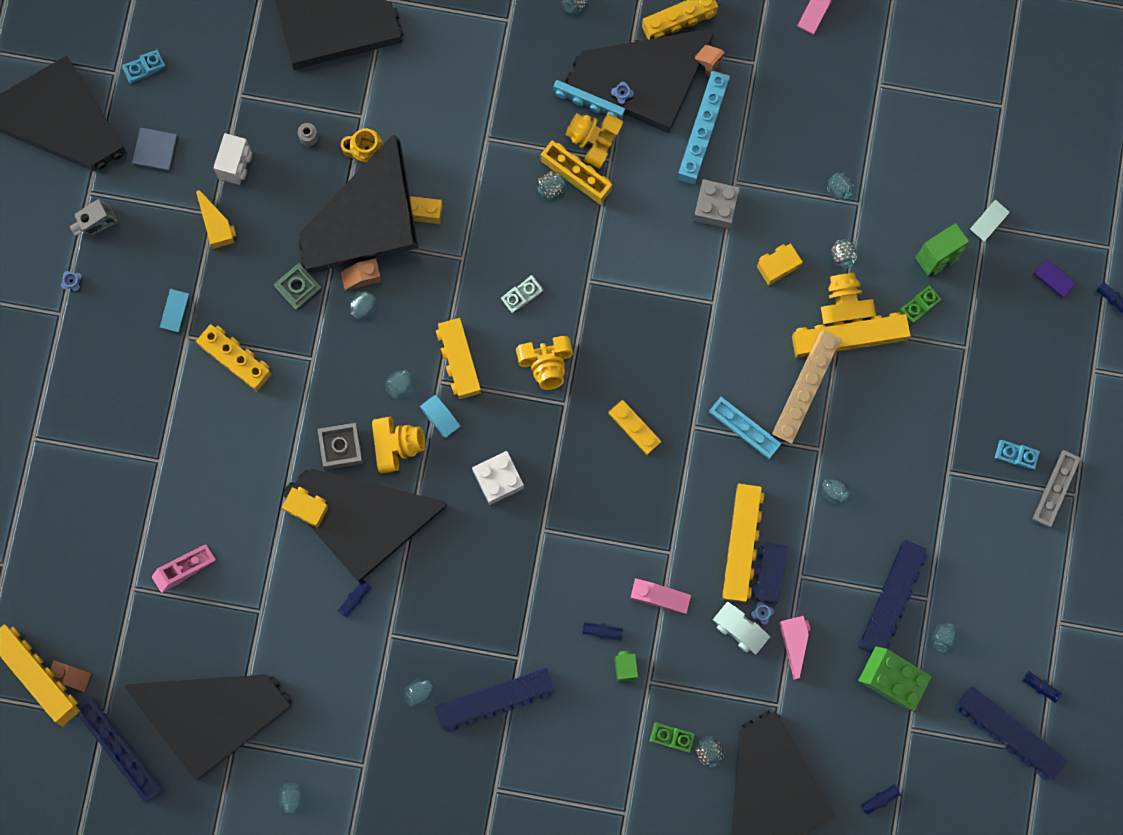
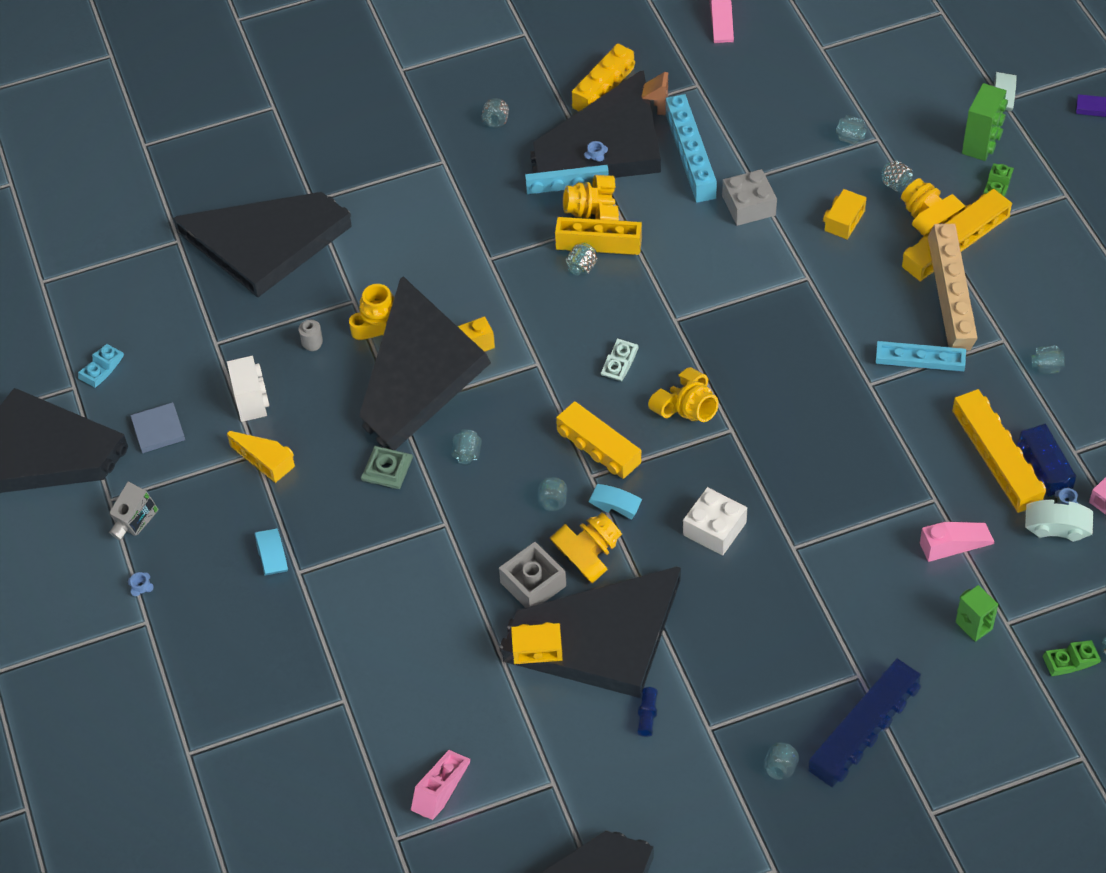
camera: 25 degrees left, 25 degrees down
(233, 357) = (363, 560): yellow brick -> none
(361, 274) = (447, 421): nougat slope -> none
(602, 631) = (925, 600): clear blue pin -> none
(634, 427) = (815, 412): yellow plate -> none

